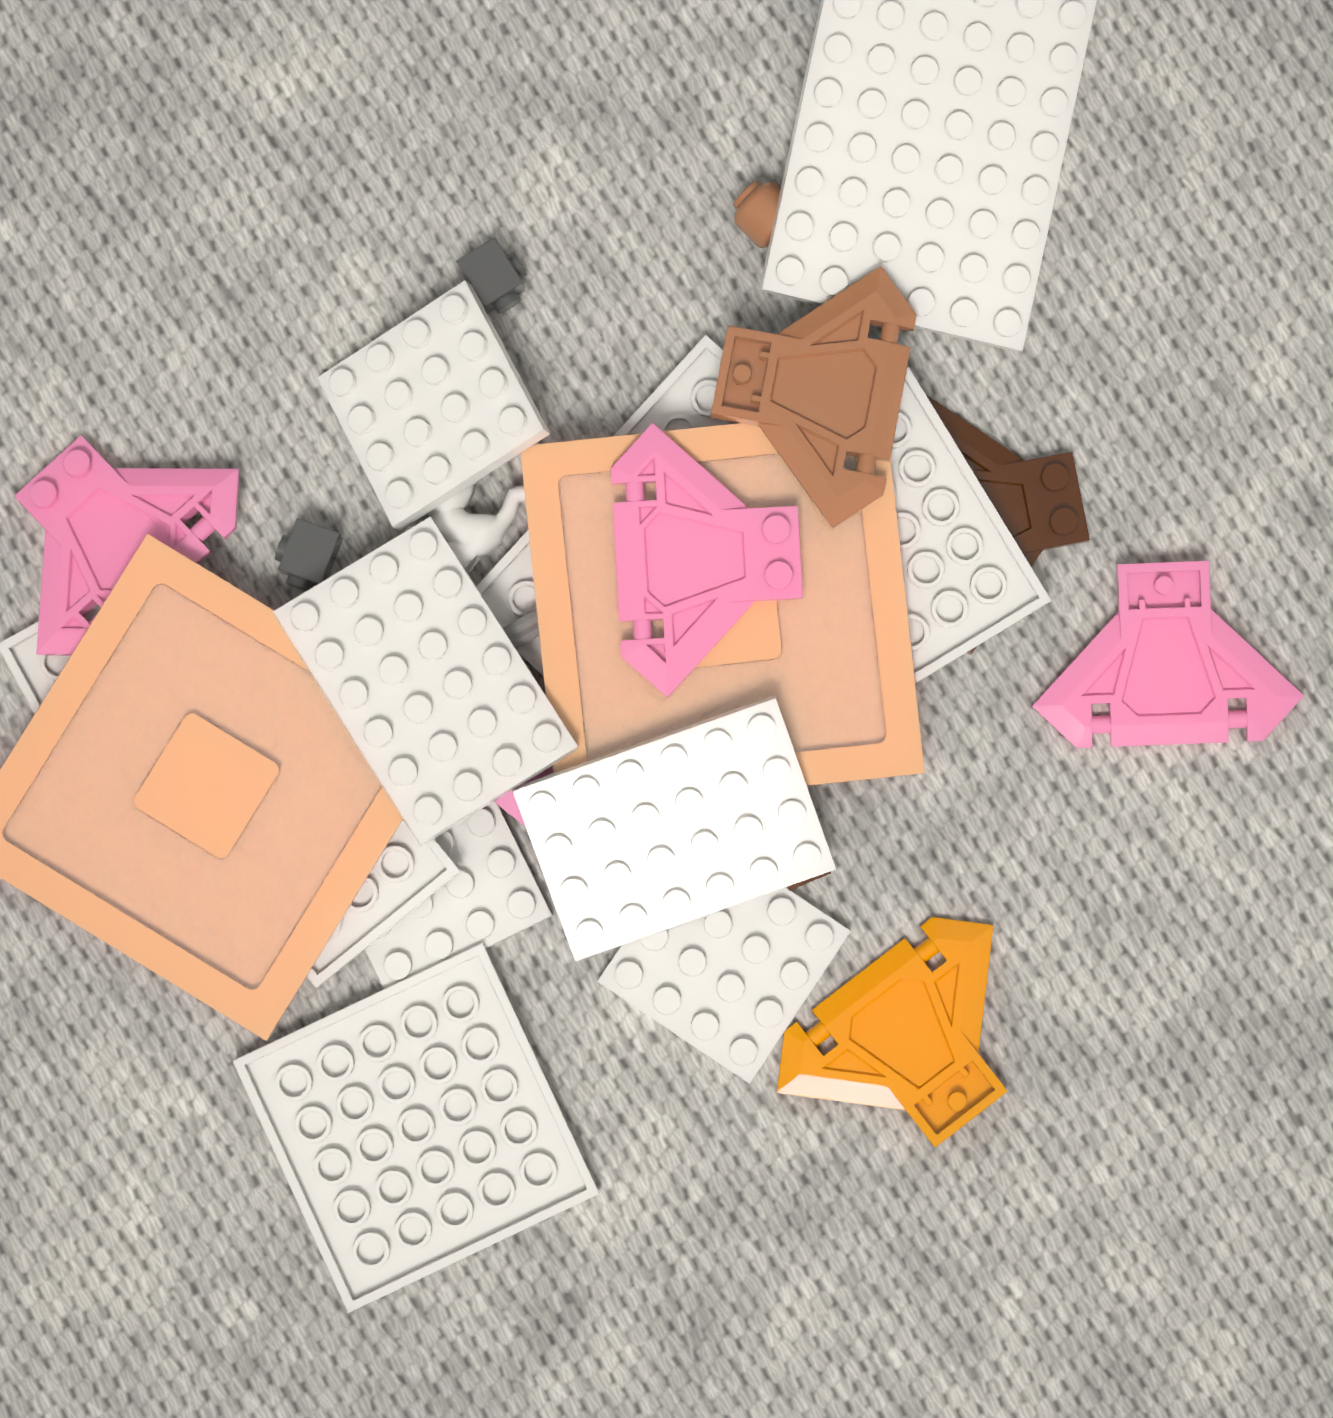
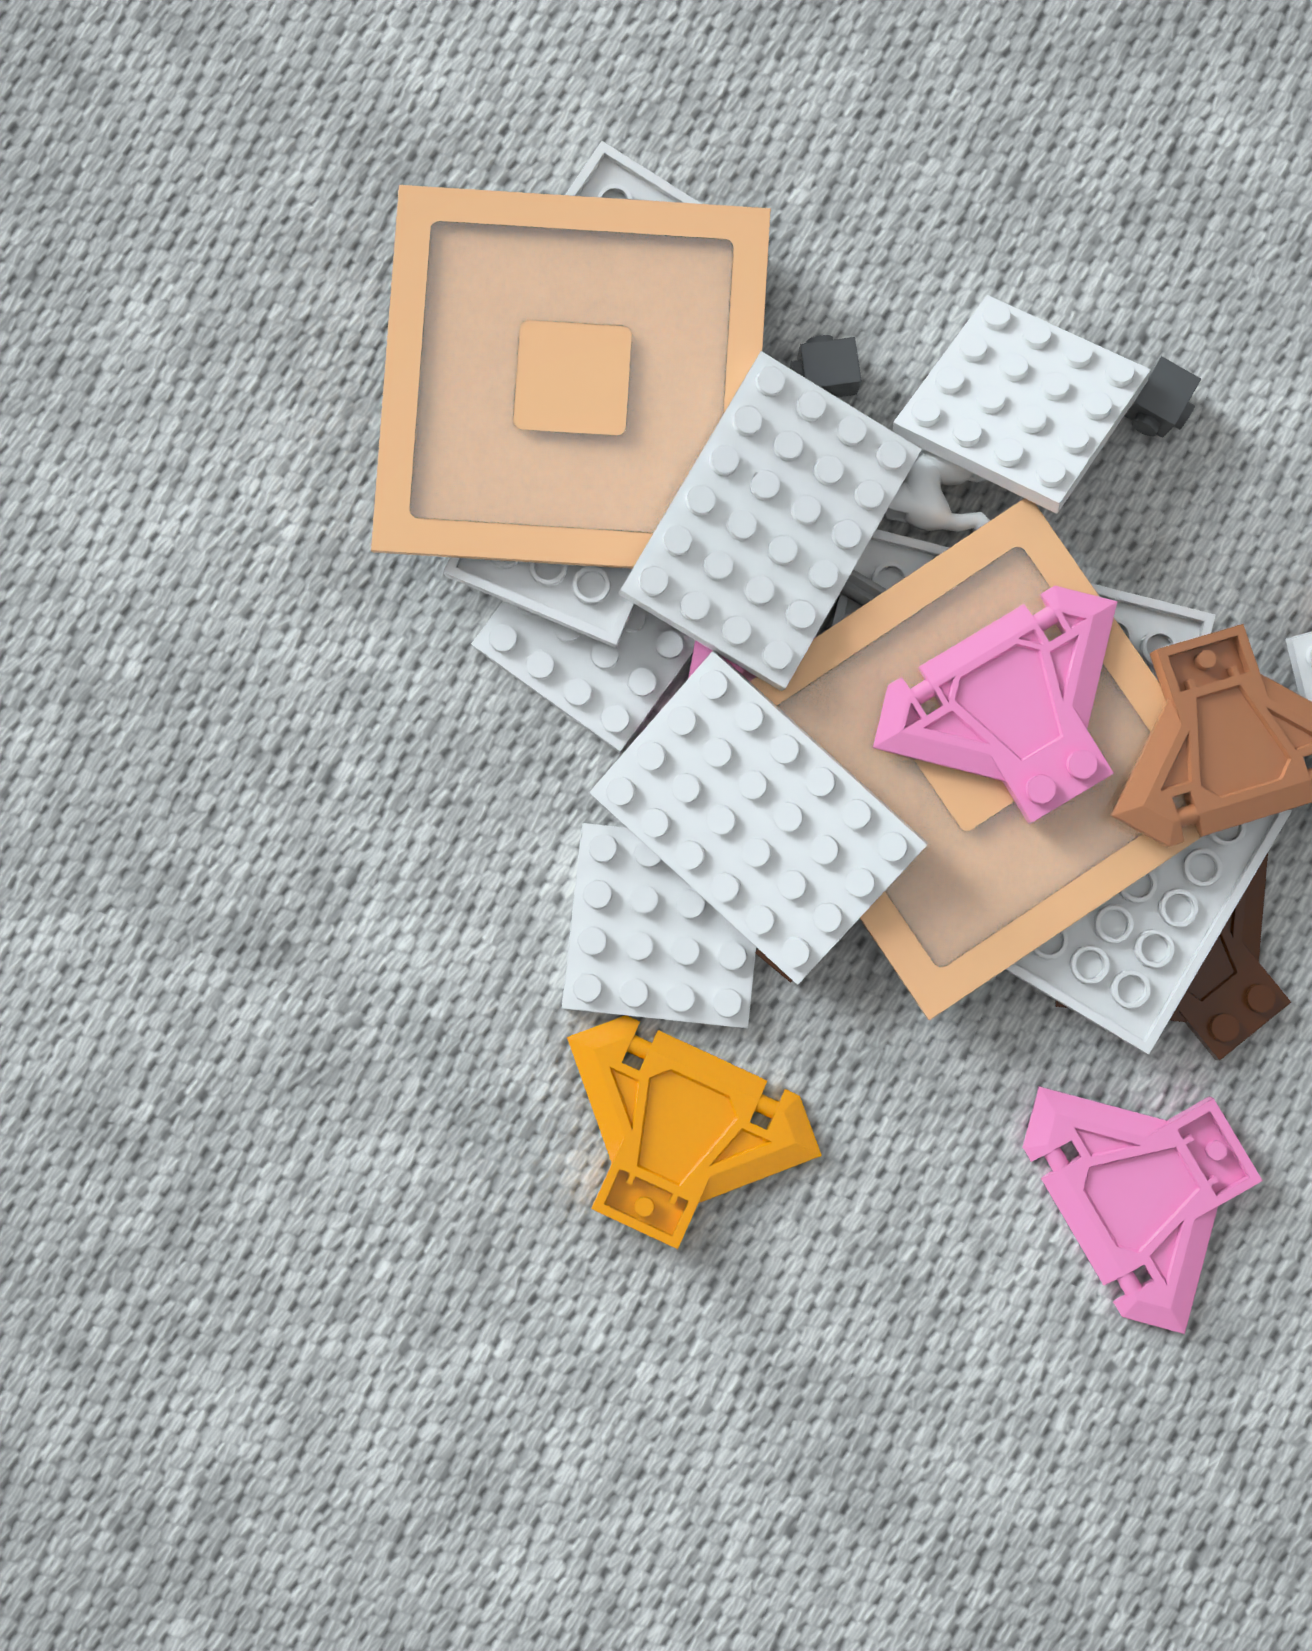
camera: 55 degrees right, 0 degrees up
(100, 518) = (760, 164): bright pink plate -> none
(415, 1127) = (367, 730): white plate -> none

